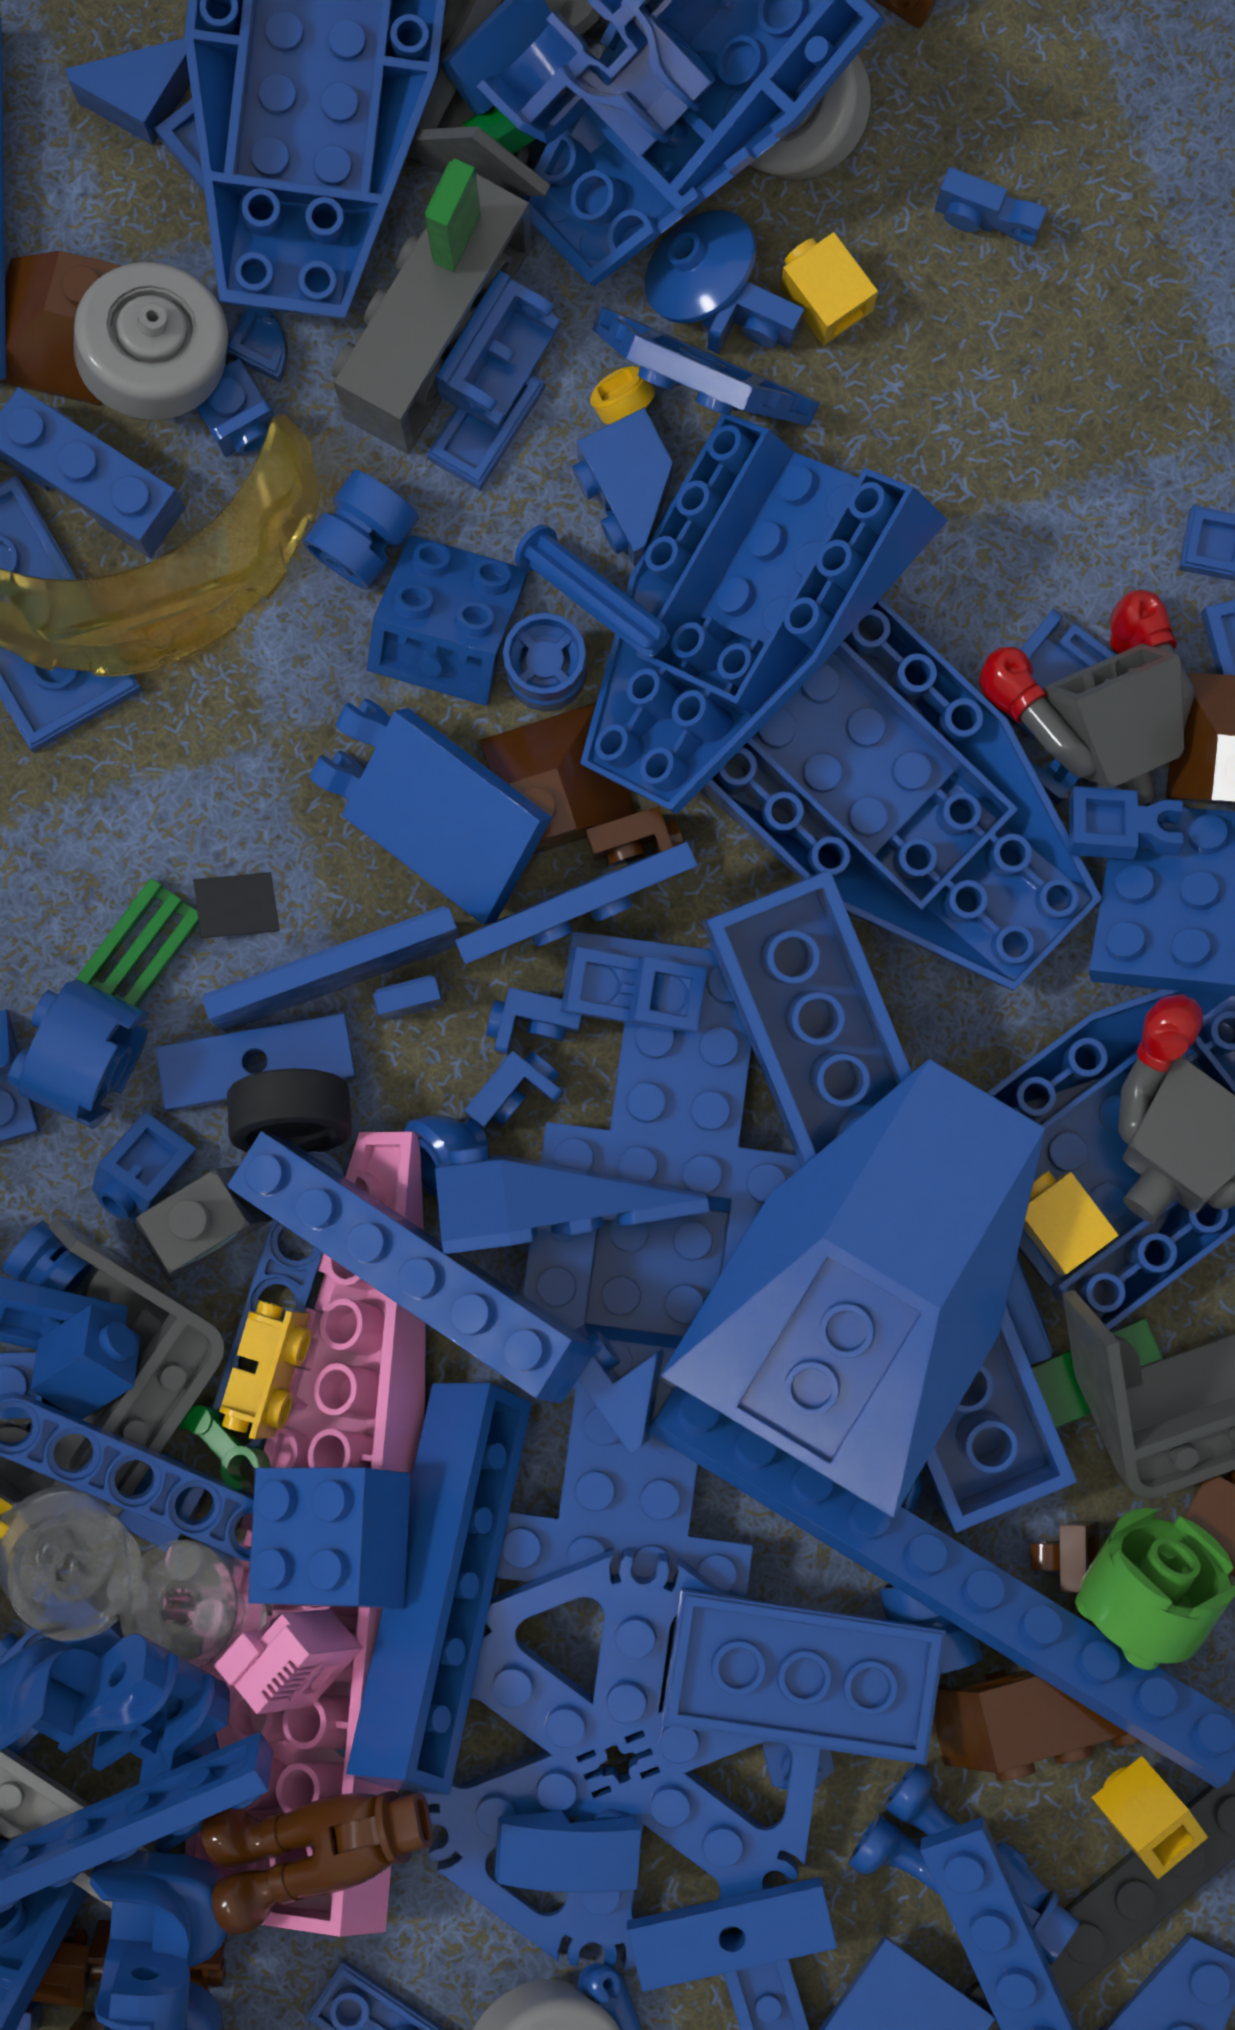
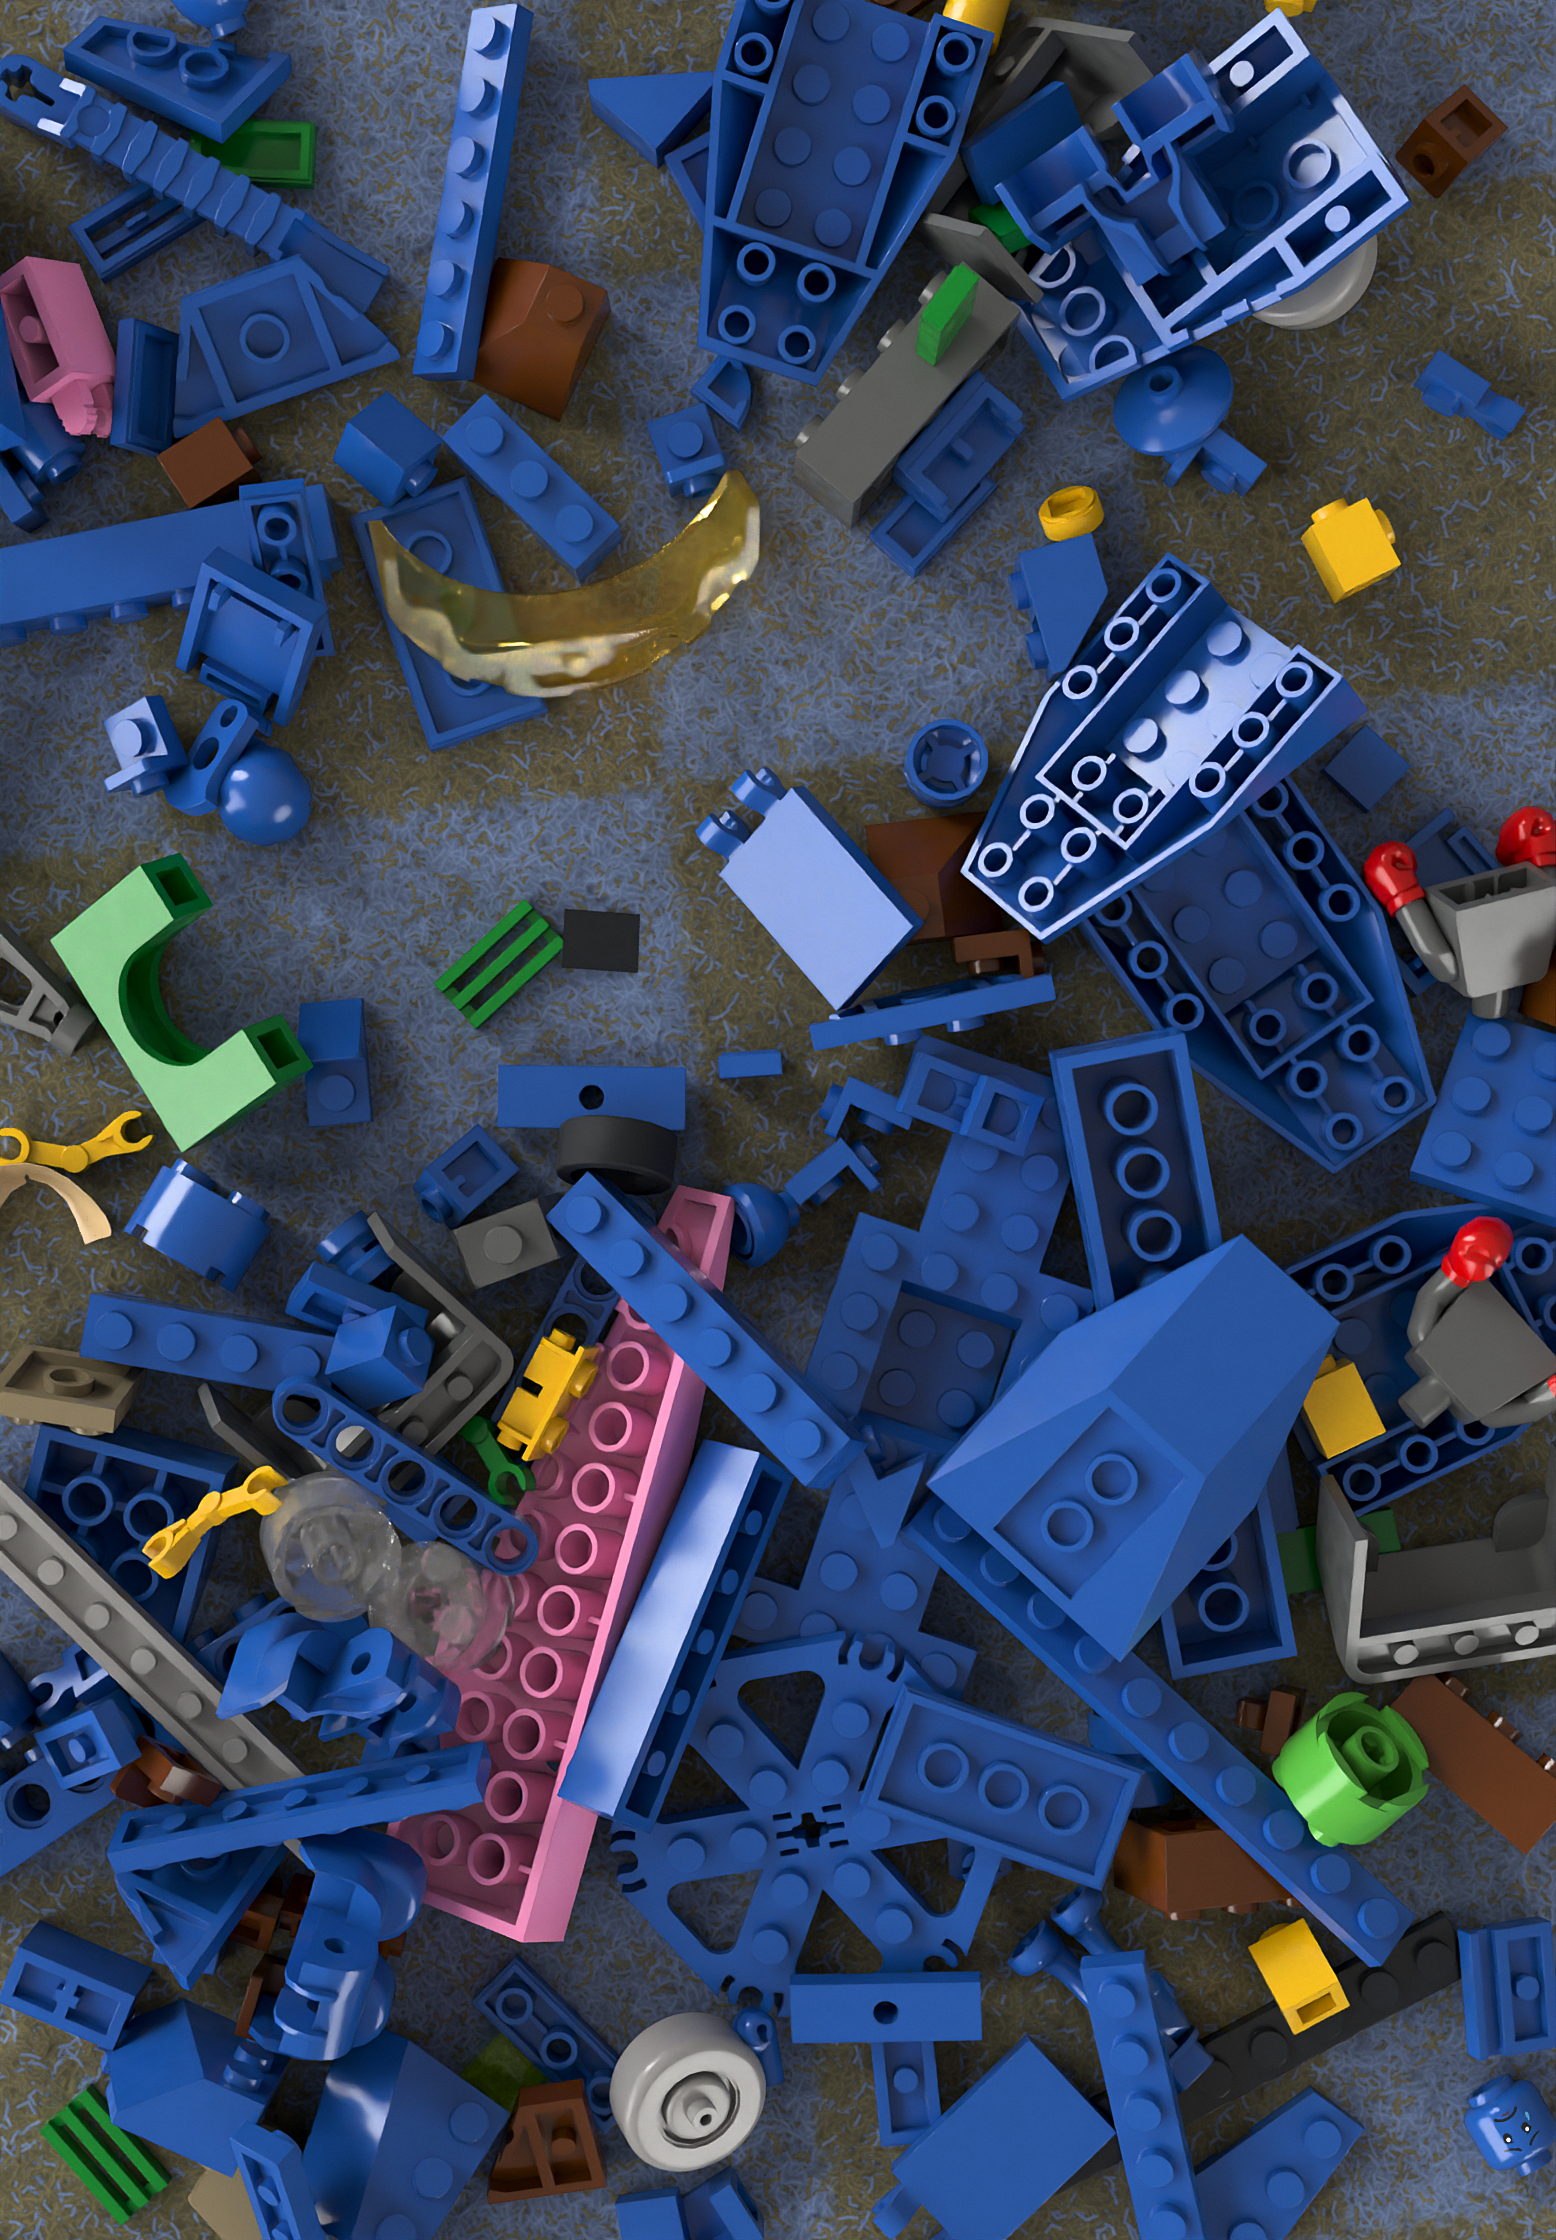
camera: 10 degrees right, 5 degrees up
(80, 1051) = (428, 1057): blue brick -> none
(150, 340) = (622, 372): light grey wheel -> none
(289, 1660) = (522, 1678): bright pink piece -> none
(329, 1537) = (581, 1571): blue brick -> none
(332, 969) = (684, 1025): blue tile -> none
(352, 1839) = (551, 1862): reddish brown piece -> none
(360, 529) = (791, 598): blue wheel -> none
(445, 619) = (856, 701): blue bracket -> none
(510, 1198) = (809, 1285): blue wedge -> none
(561, 1856) = (735, 1904): blue slope -> none
(591, 591) = (1004, 704): blue axle -> none
(719, 382) = (1170, 521): blue wing -> none
(827, 286) = (1293, 444): yellow brick -> none
(904, 374) = (1350, 547): none -> yellow brick
(964, 588) = (1365, 768): none -> blue tile
(1113, 824) = (1463, 1035): blue plate -> none

